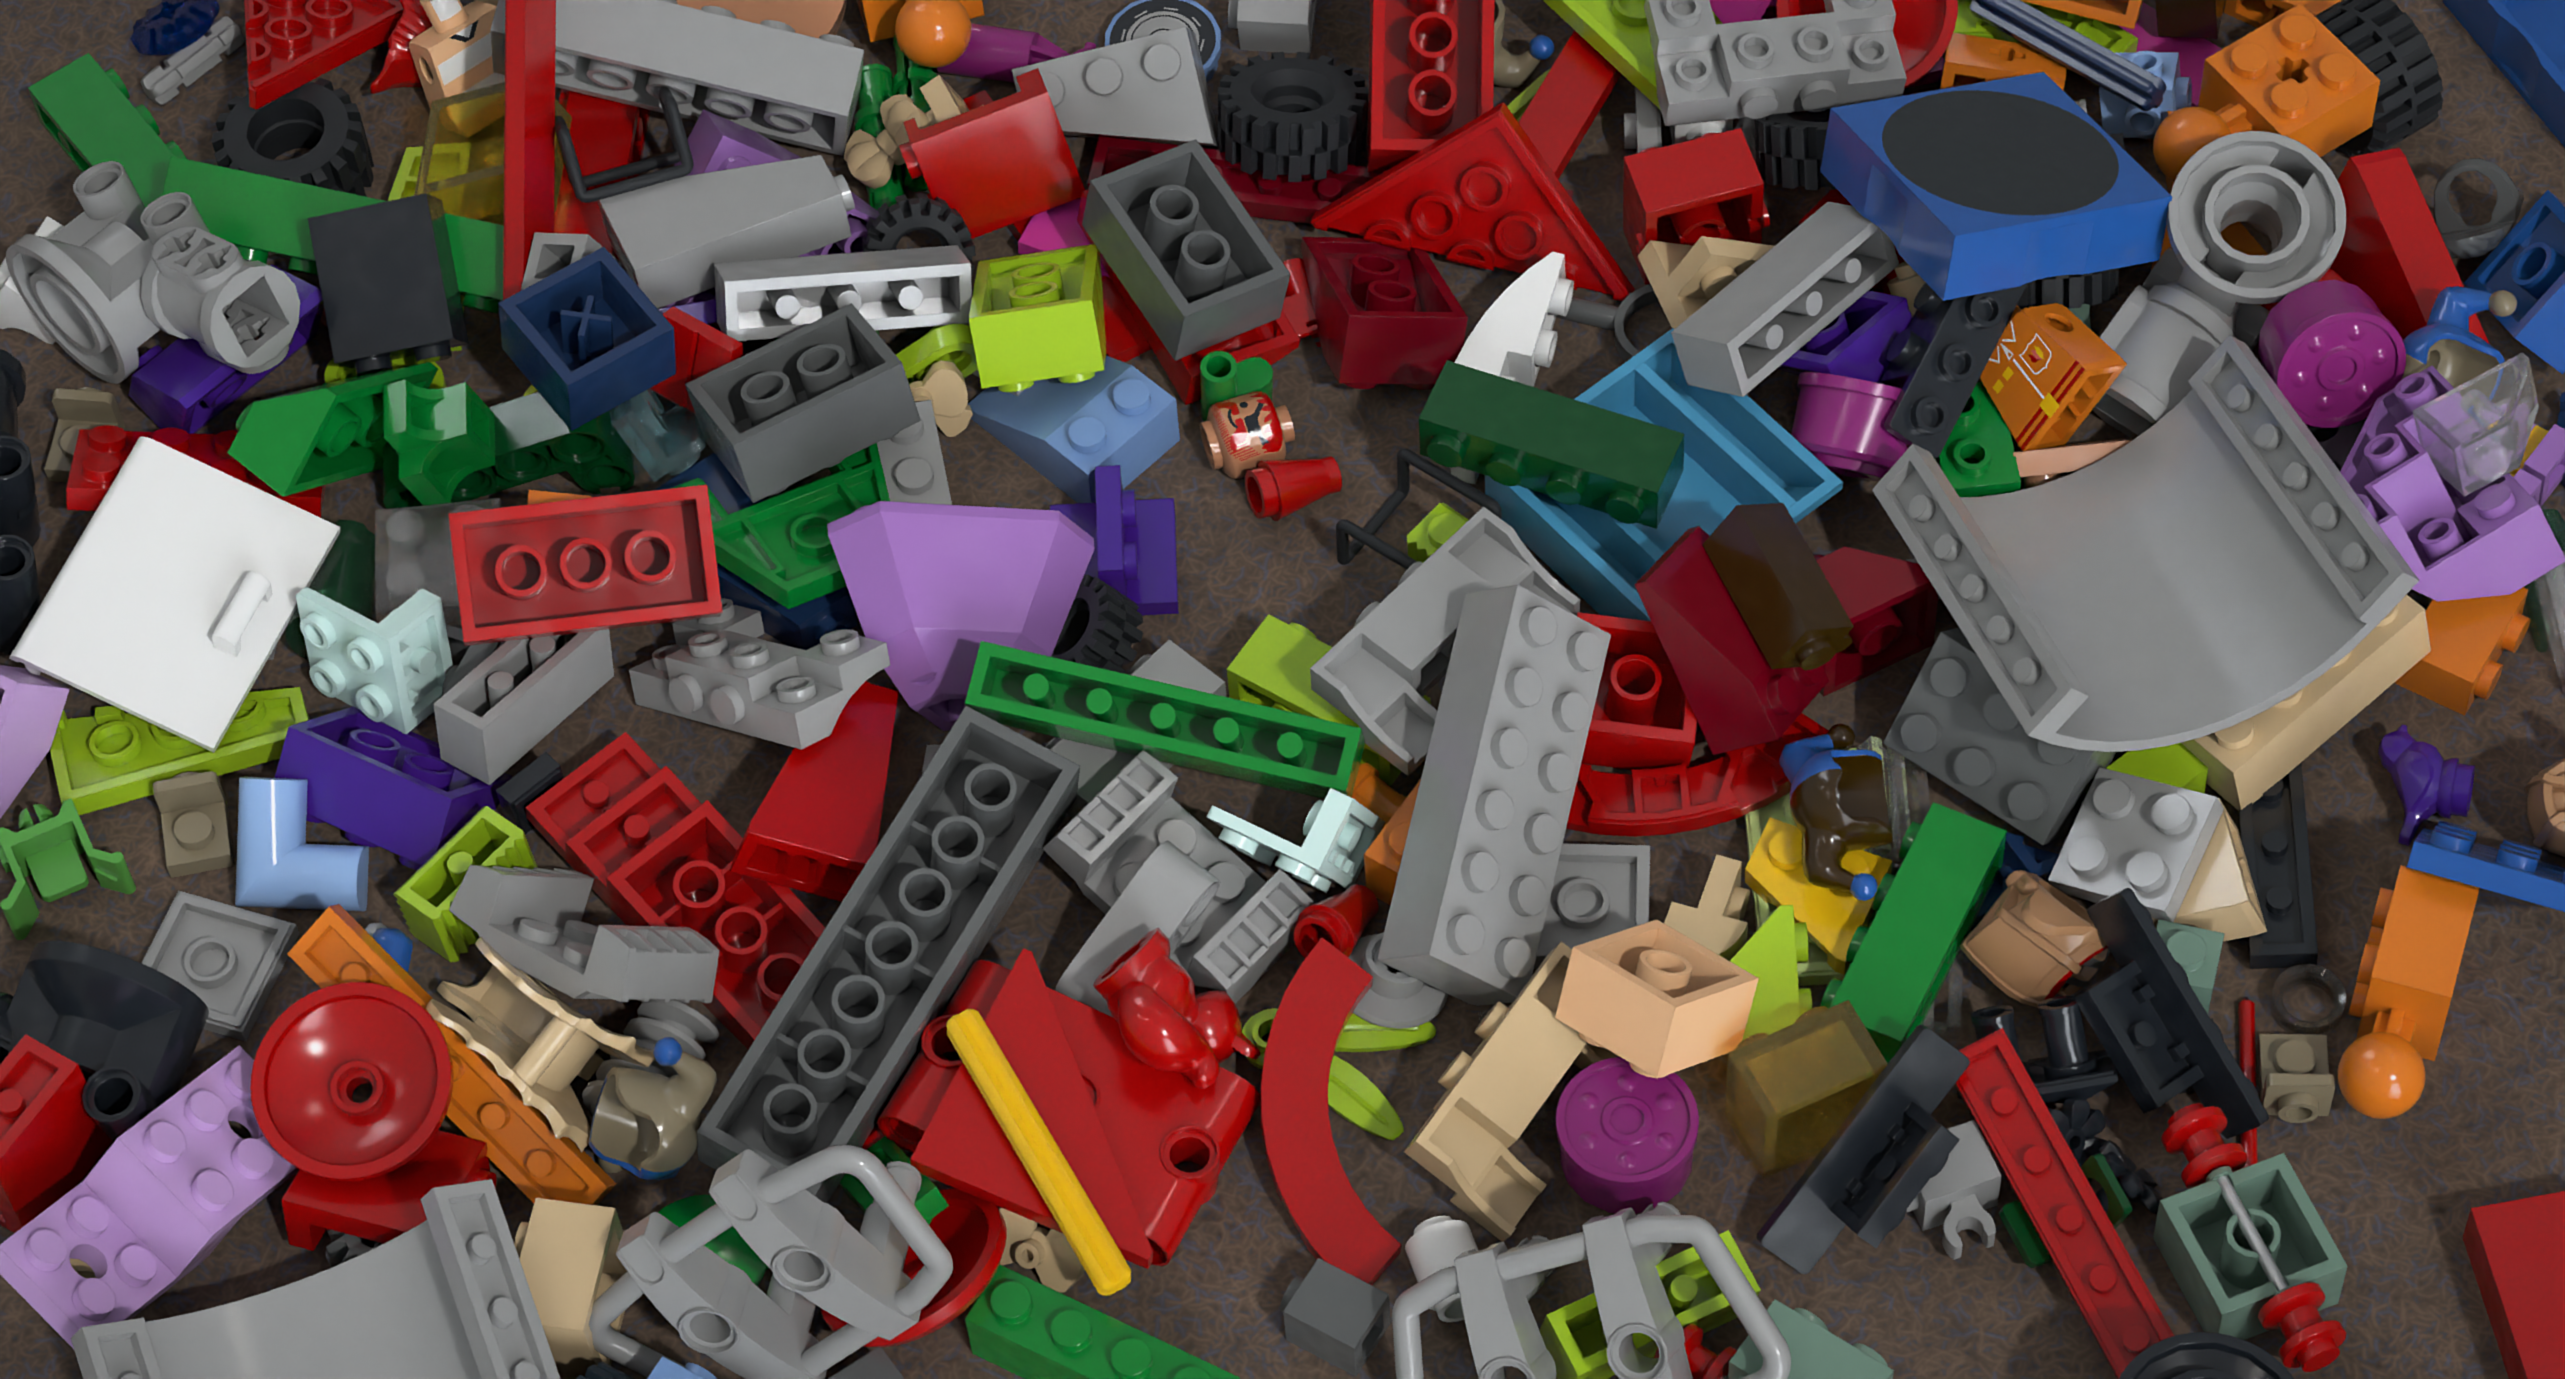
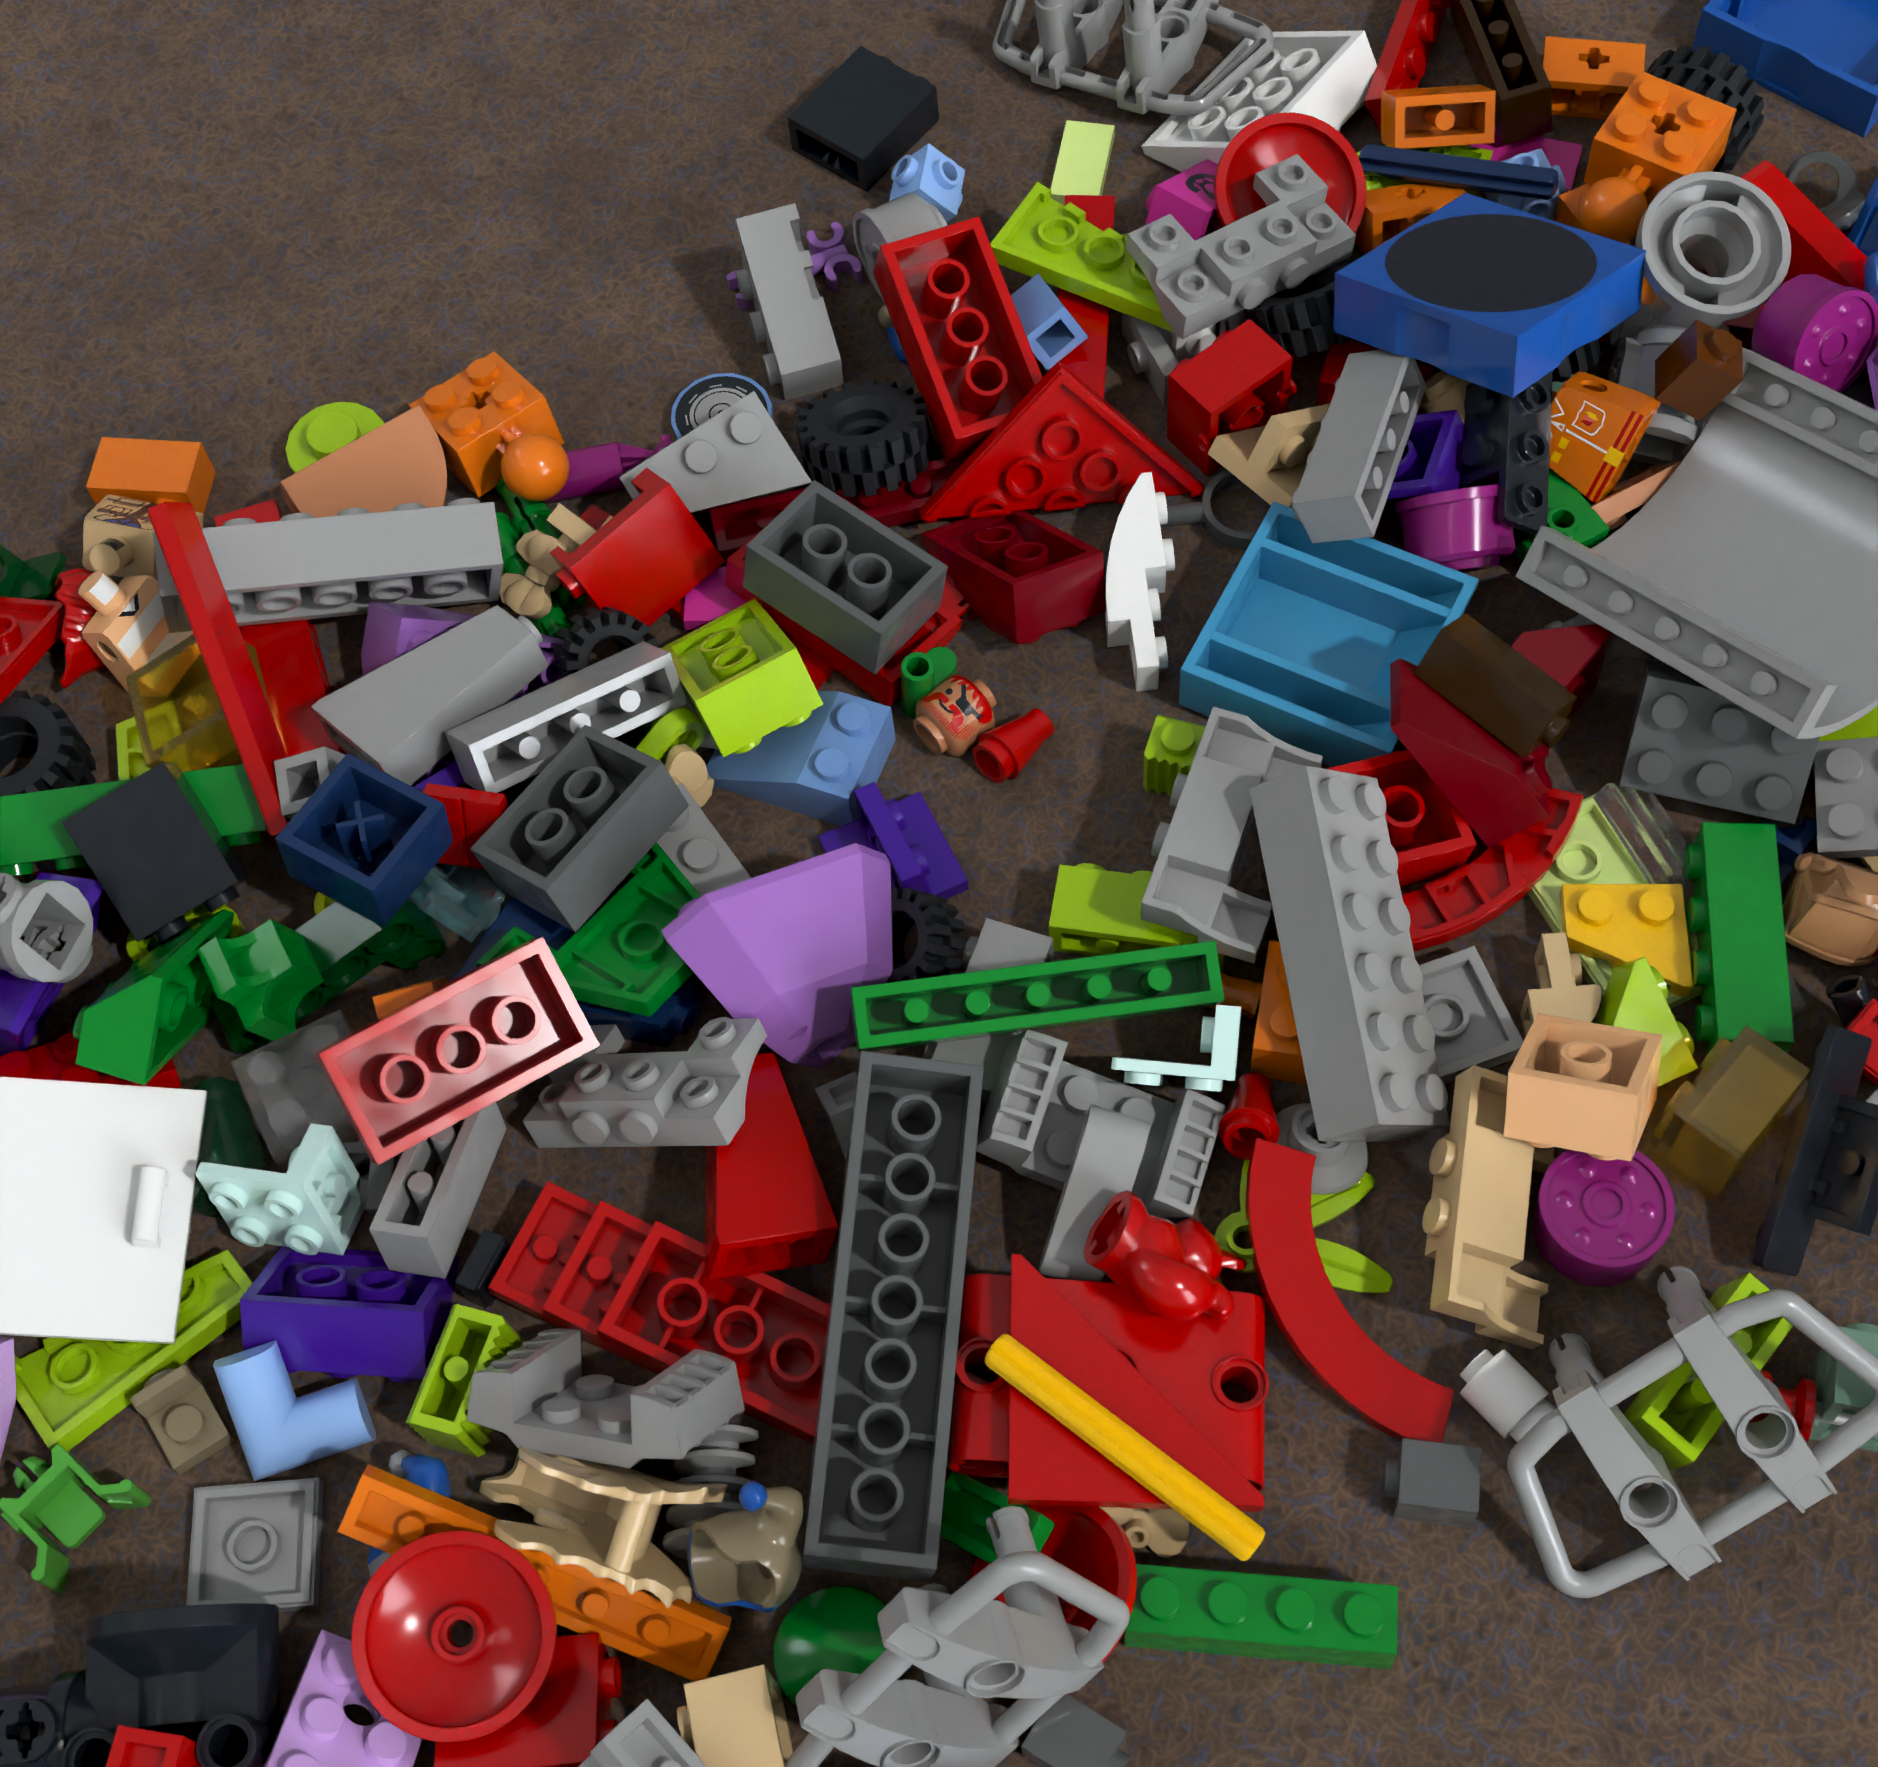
camera: 20 degrees left, 5 degrees up
(680, 153) = (287, 699): black piece -> none
(1365, 536) = (1089, 765): black piece -> none
(1532, 57) = (1046, 322): none -> medium blue brick
(1551, 444) = (1237, 633): dark green brick -> none
(1836, 806) = (1624, 857): dark brown piece -> none
(2175, 343) = (1698, 369): none -> reddish brown brick

